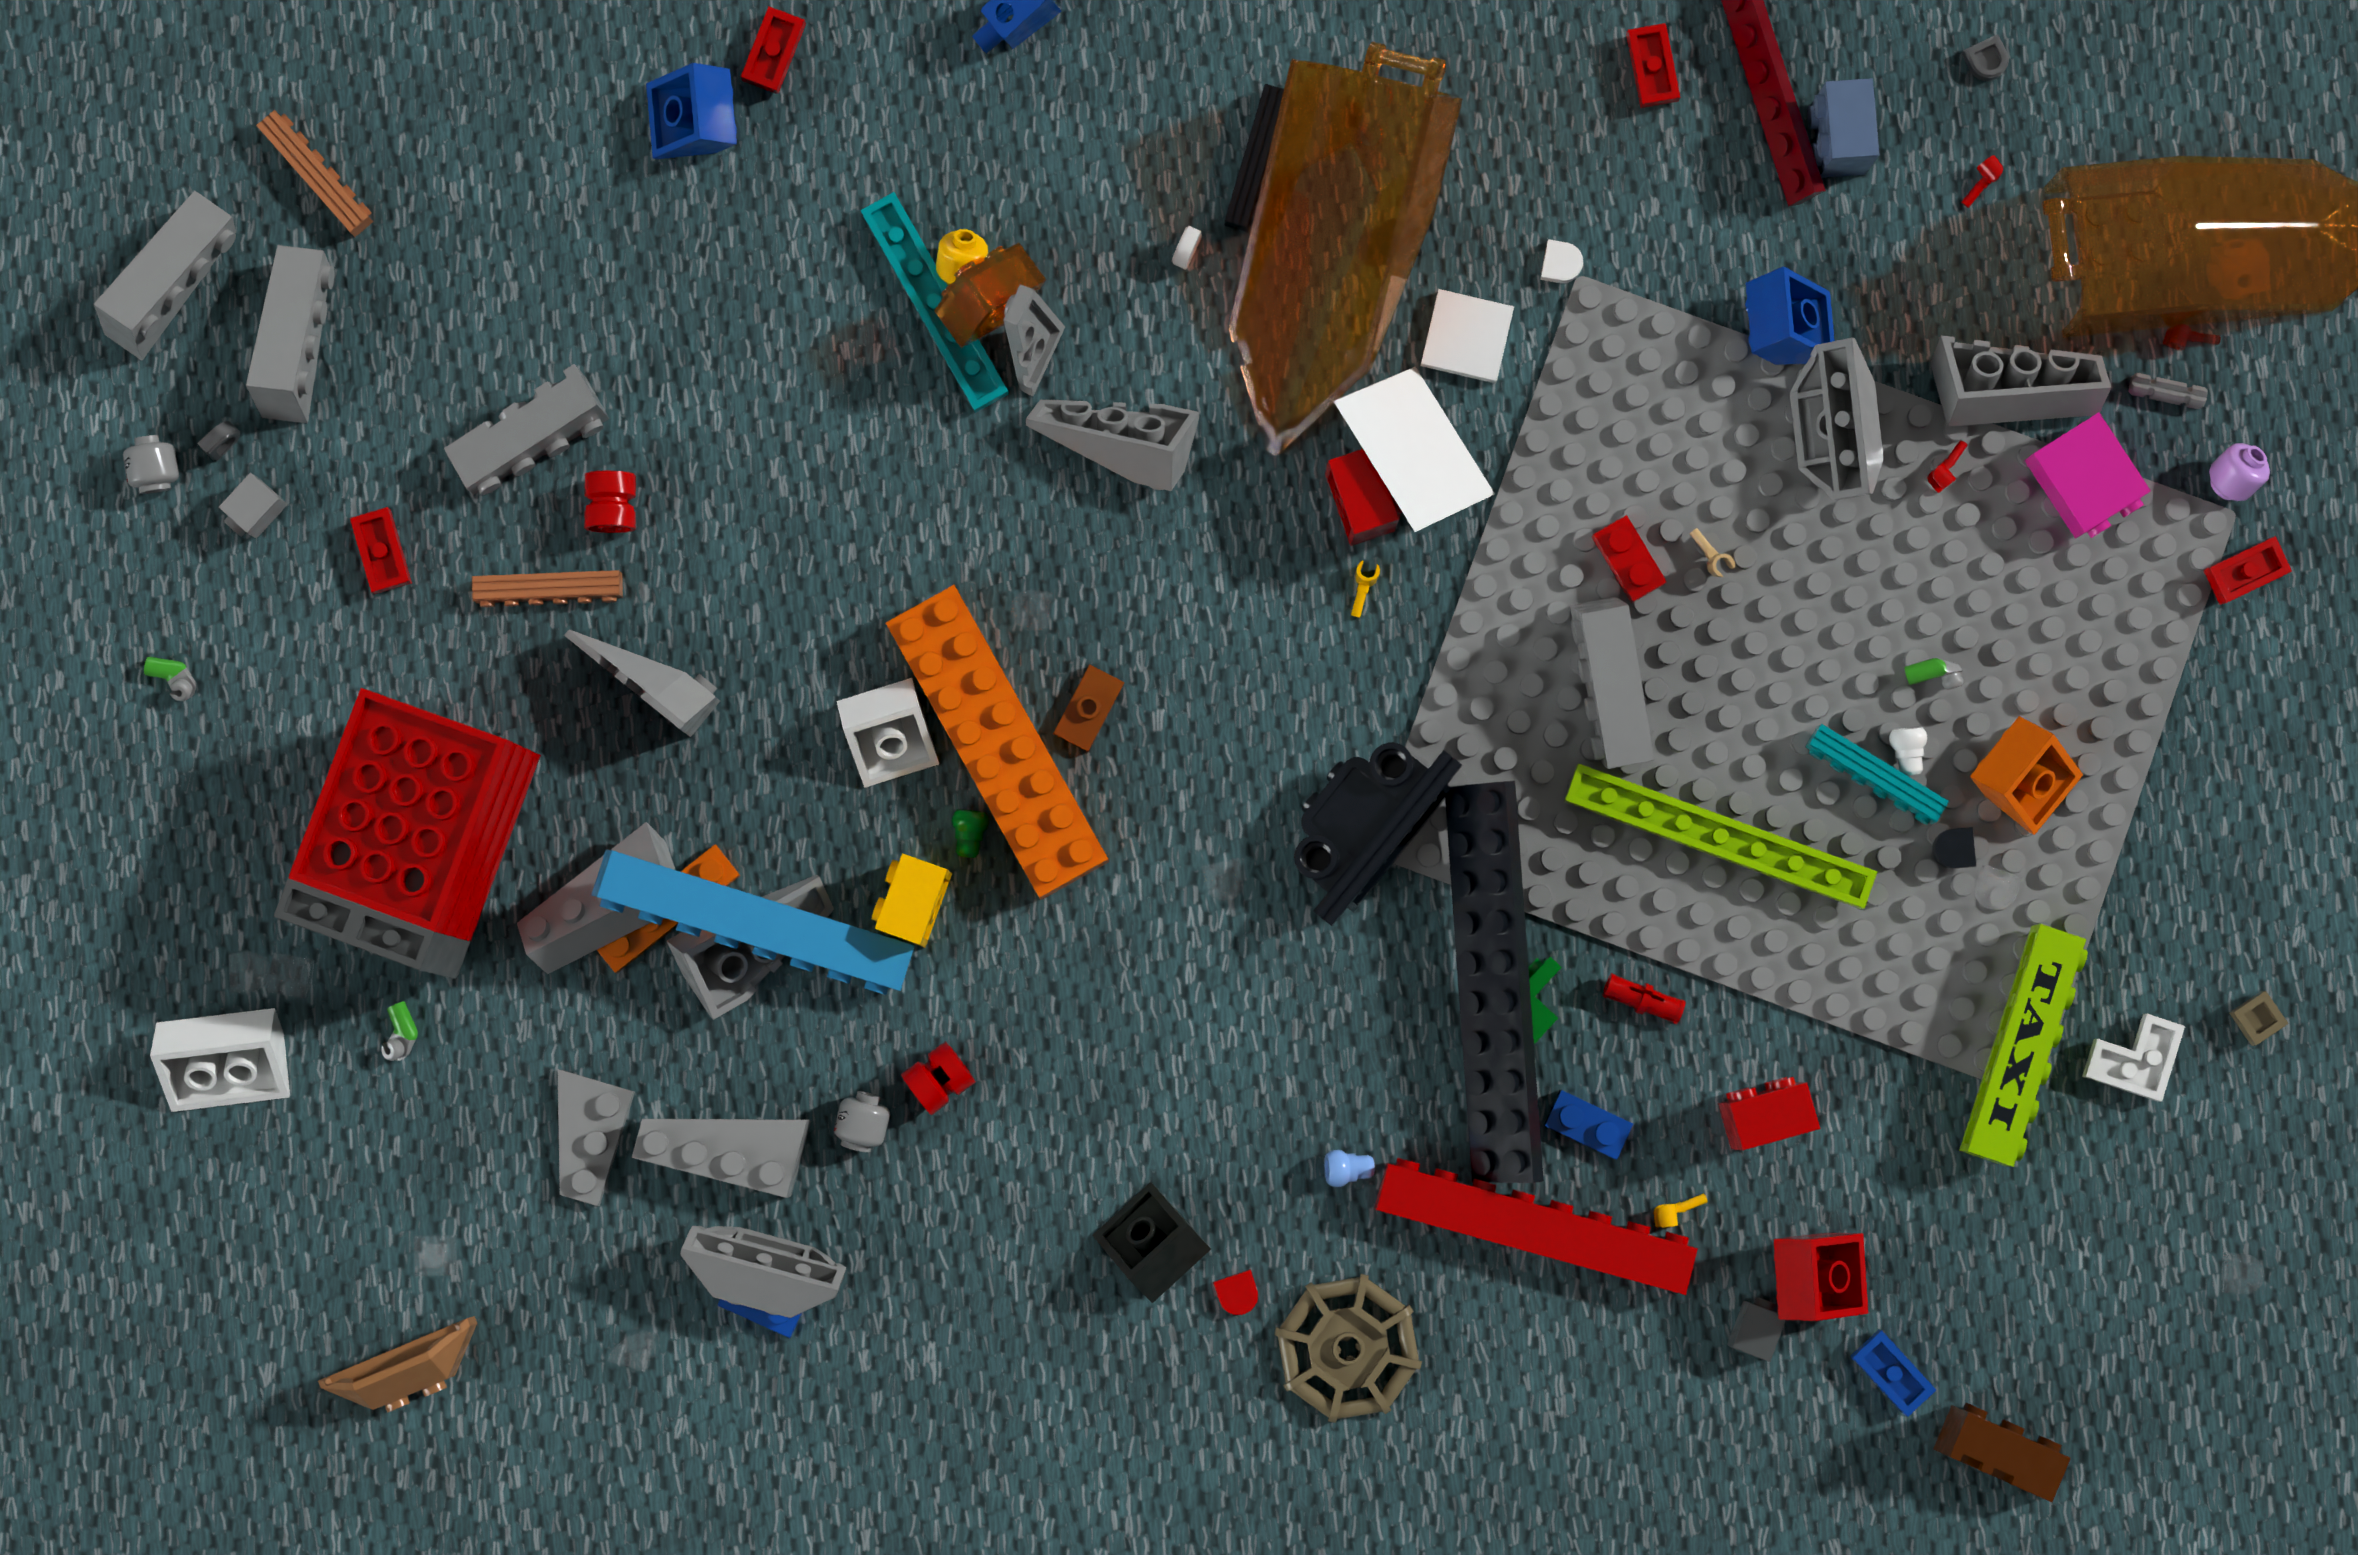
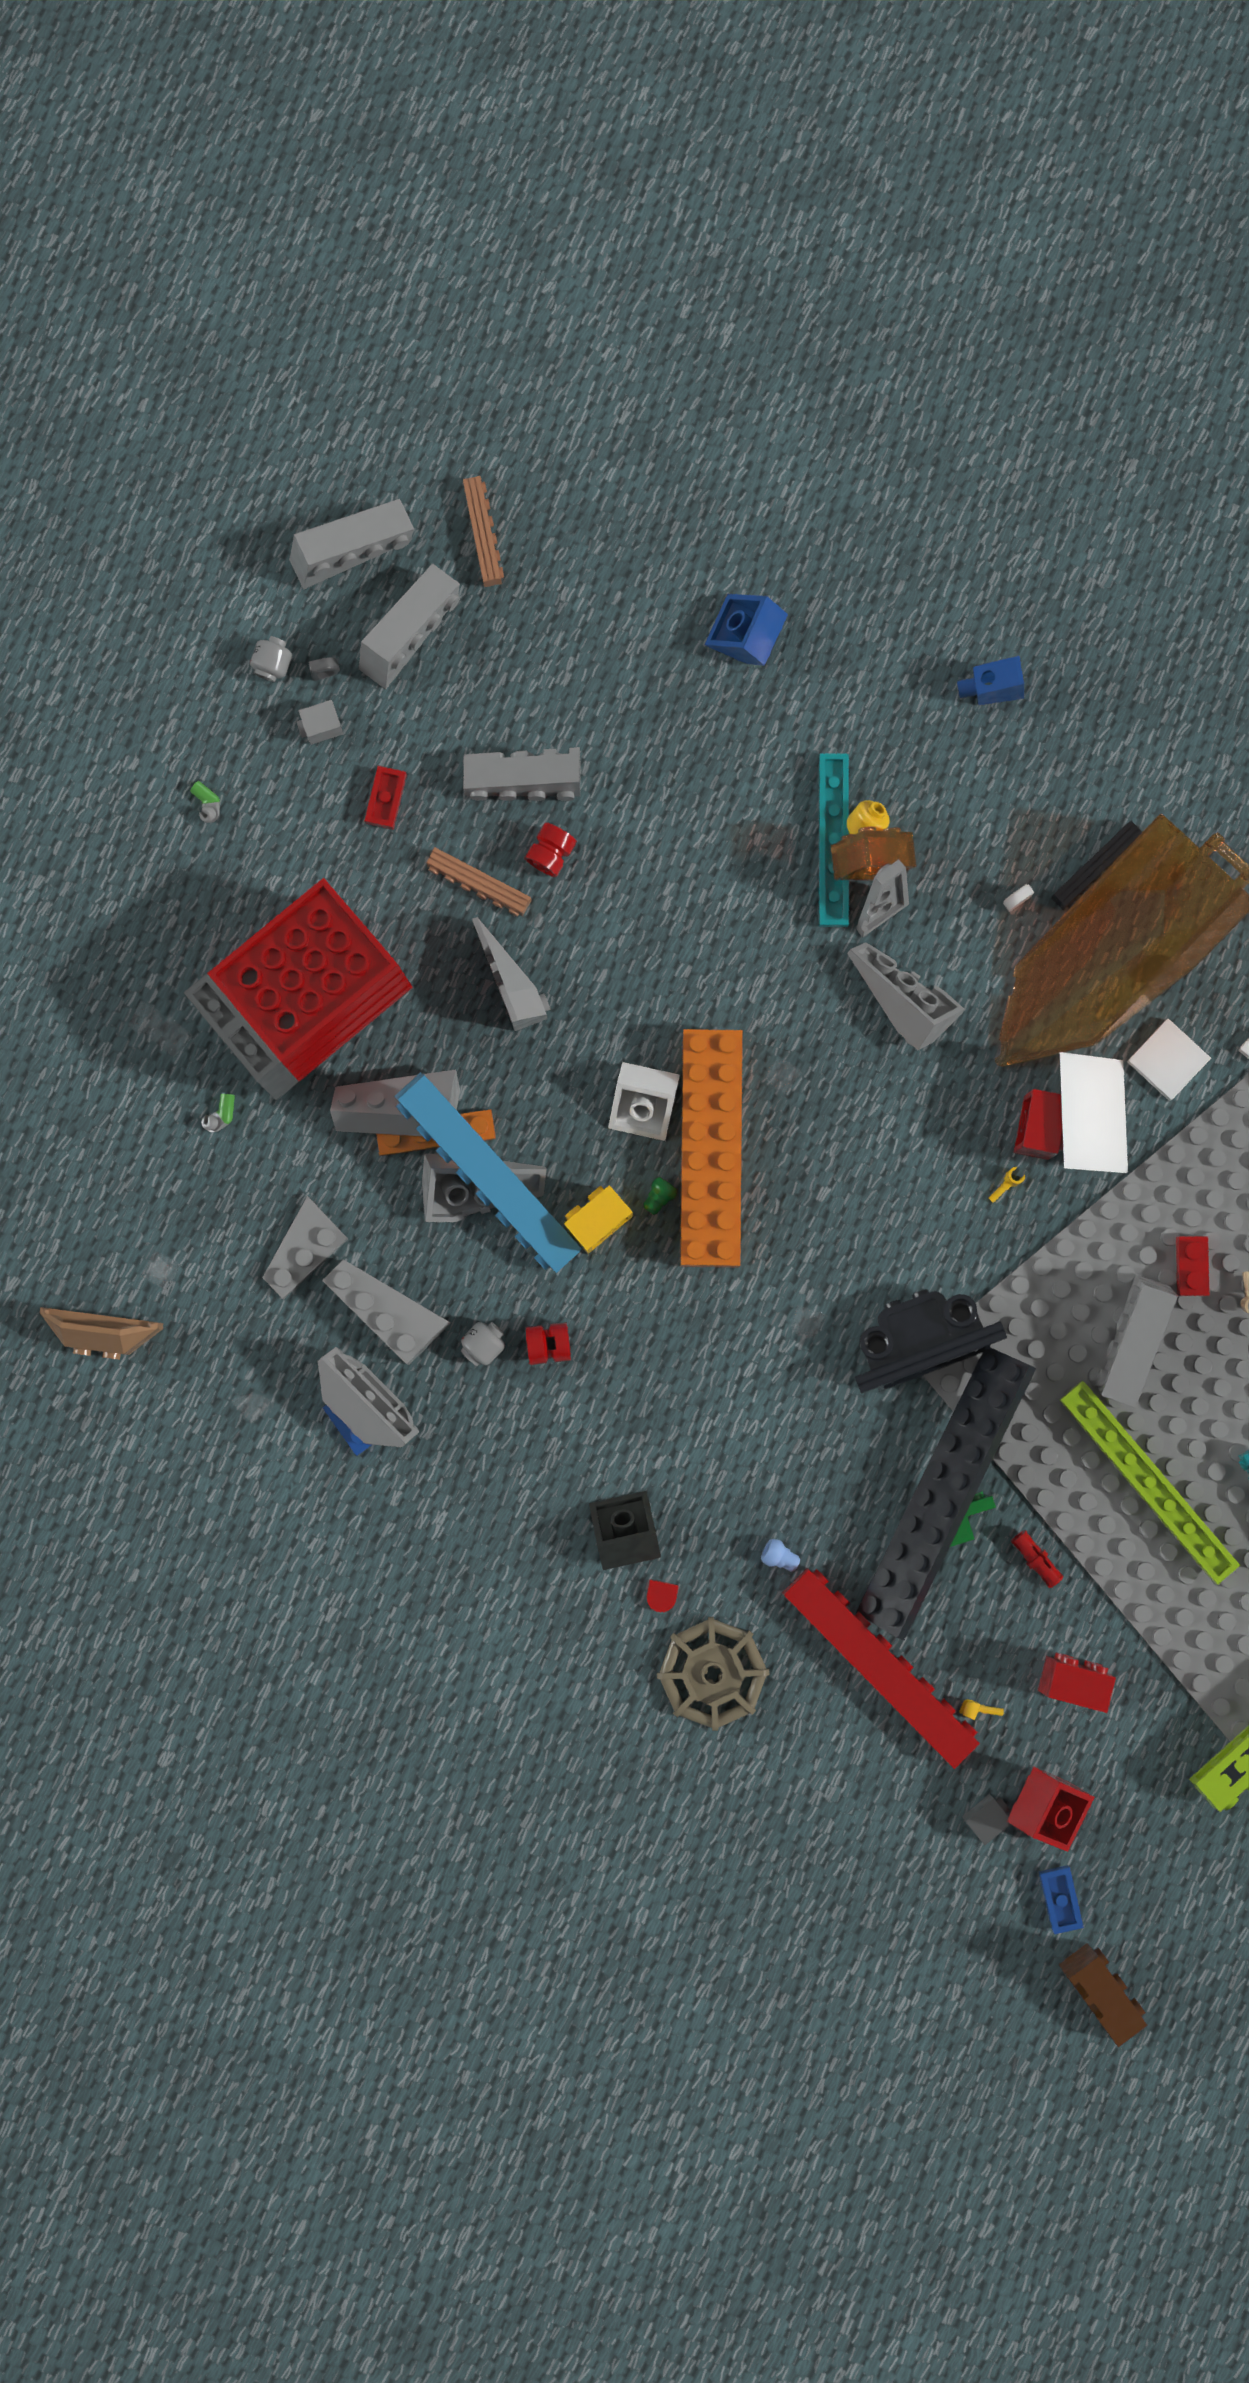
camera: 30 degrees right, 0 degrees up
(221, 1059) = (97, 1065): white slope -> none
(773, 50) = (822, 618): red plate -> none
(1088, 708) = (782, 1160): dark orange plate -> none
(1588, 1124) = (953, 1620): blue plate -> none

